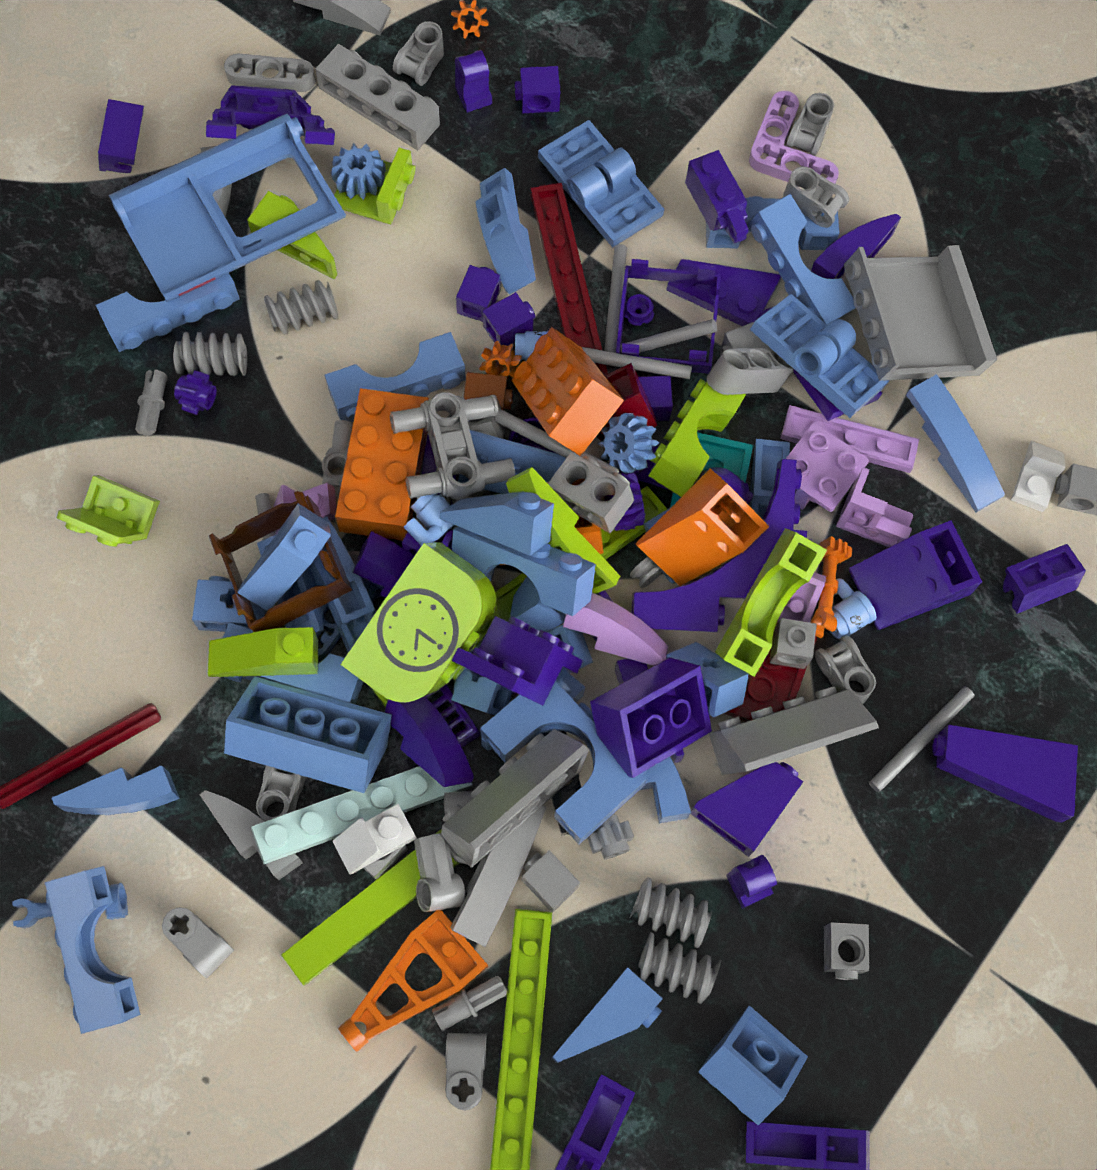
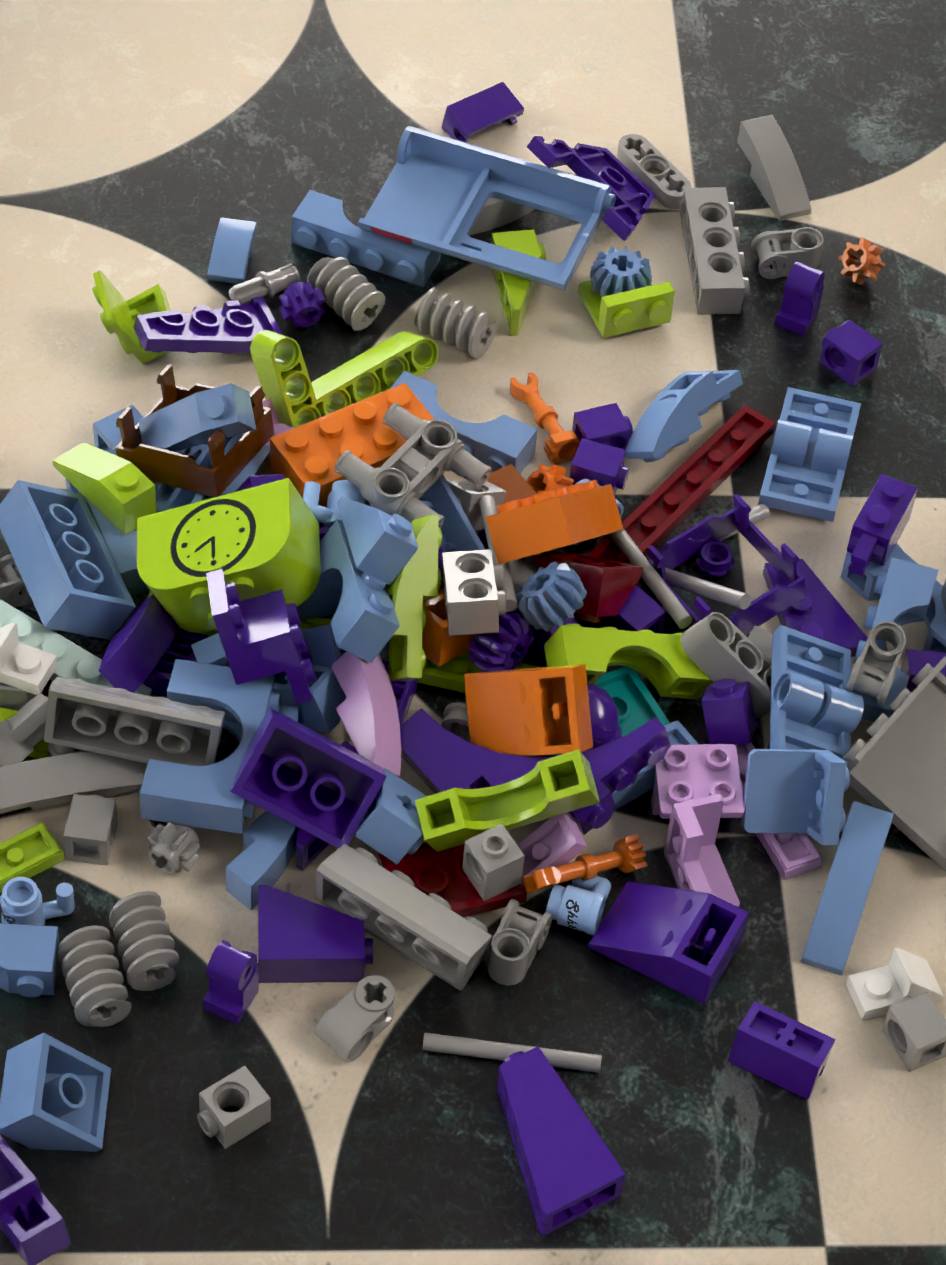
camera: 50 degrees right, 20 degrees down
(95, 398) = (231, 250): none -> medium blue slope
(173, 465) = (206, 330): none -> dark purple wing
(298, 451) = (347, 384): none -> lime beam
(465, 323) = (561, 444): none -> orange piece
(583, 974) = (23, 903): none -> light blue piece
(780, 404) = (729, 712): none -> dark purple brick
(829, 290) = (876, 668): none -> light grey piece
(835, 823) = (358, 1017): none -> light grey piece
(887, 408) = (795, 793): none -> medium blue bracket

